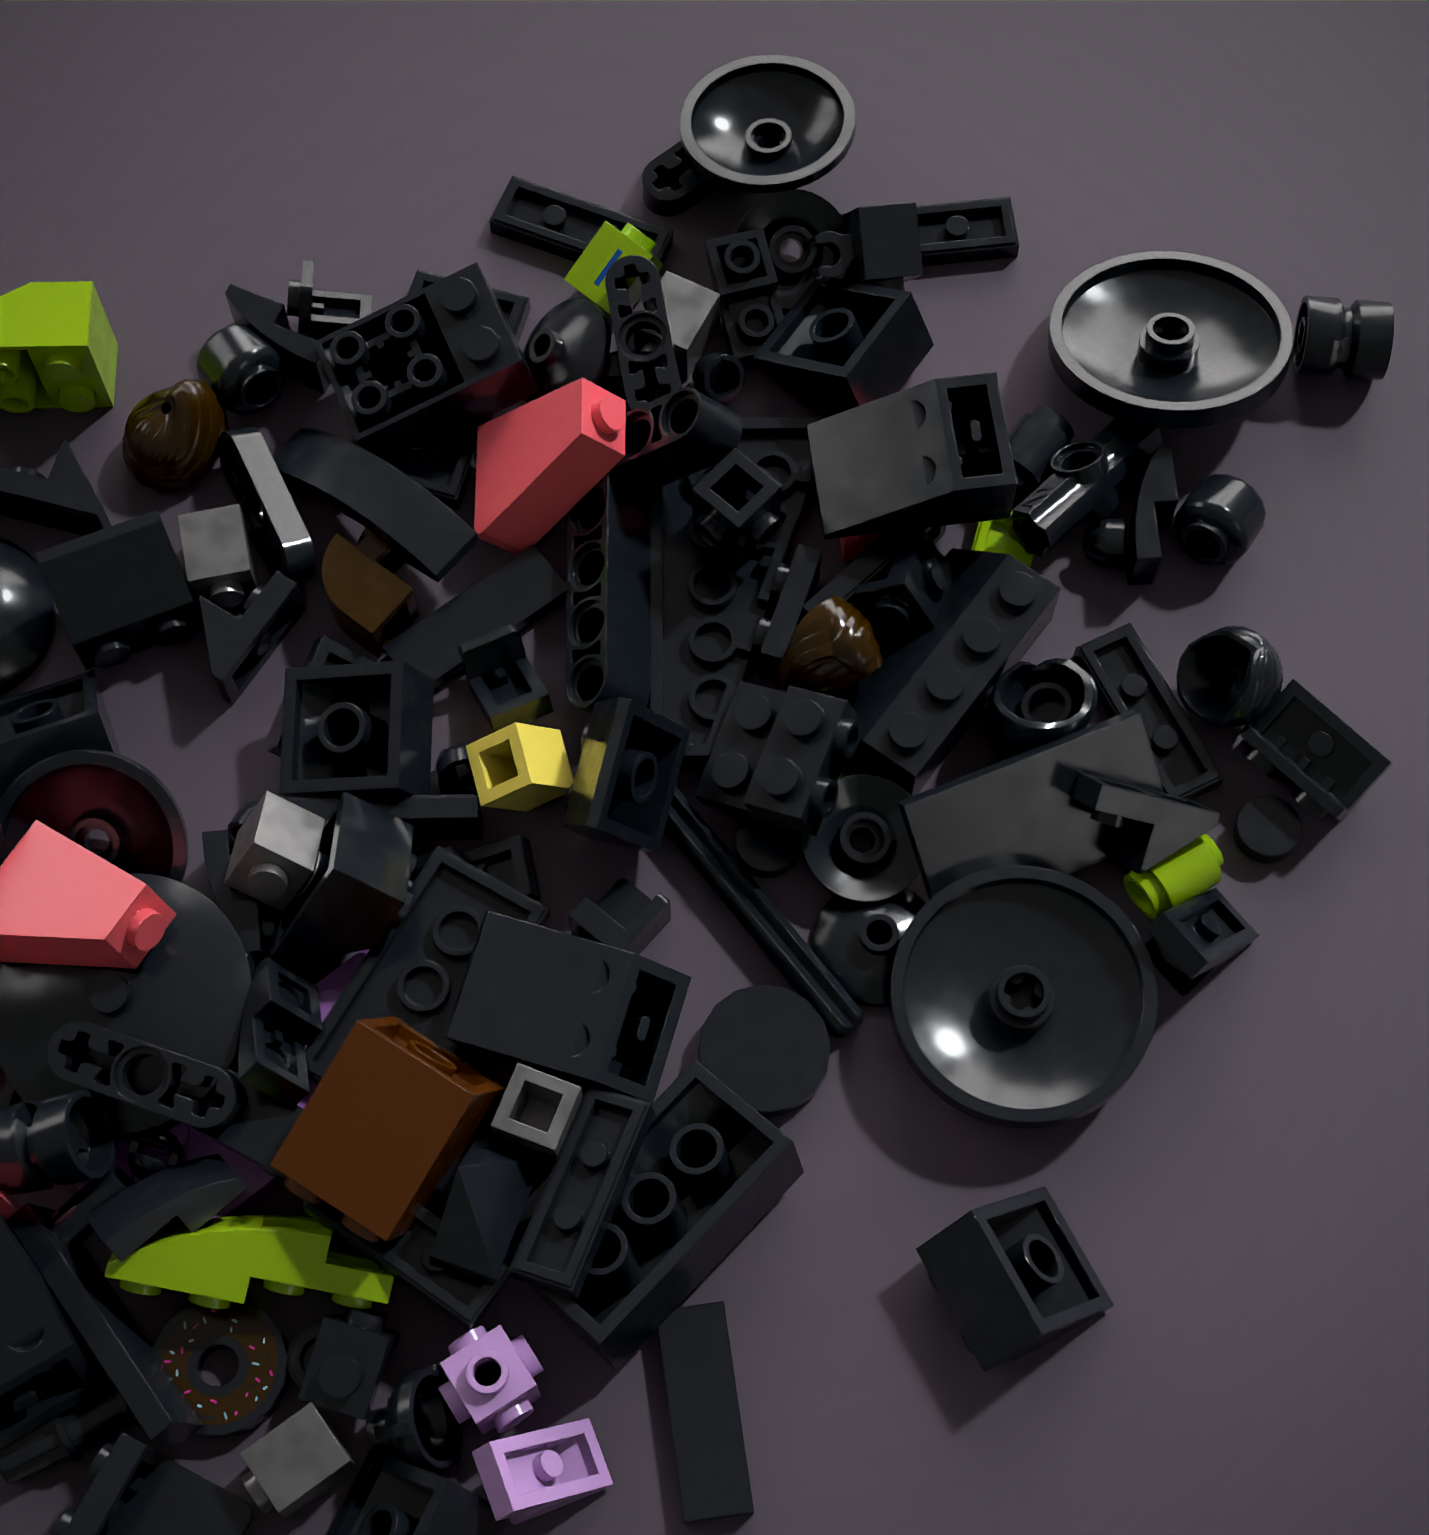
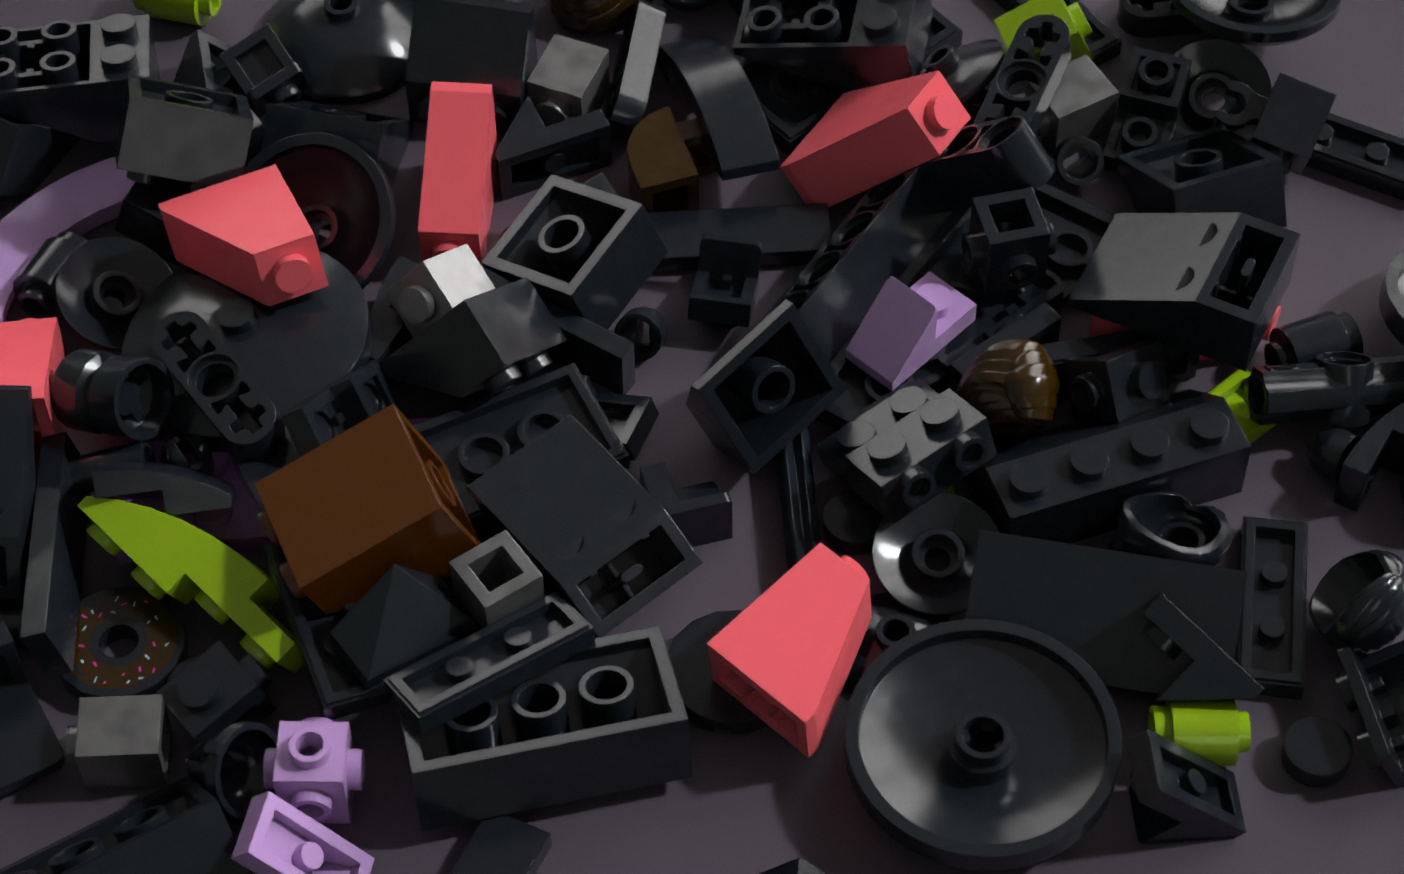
camera: 35 degrees right, 15 degrees down
(196, 718) = (458, 169): none -> coral slope
(520, 767) = (682, 341): light yellow brick -> none
(700, 636) = (908, 328): none -> lavender slope
(820, 1004) = (796, 646): none -> coral slope

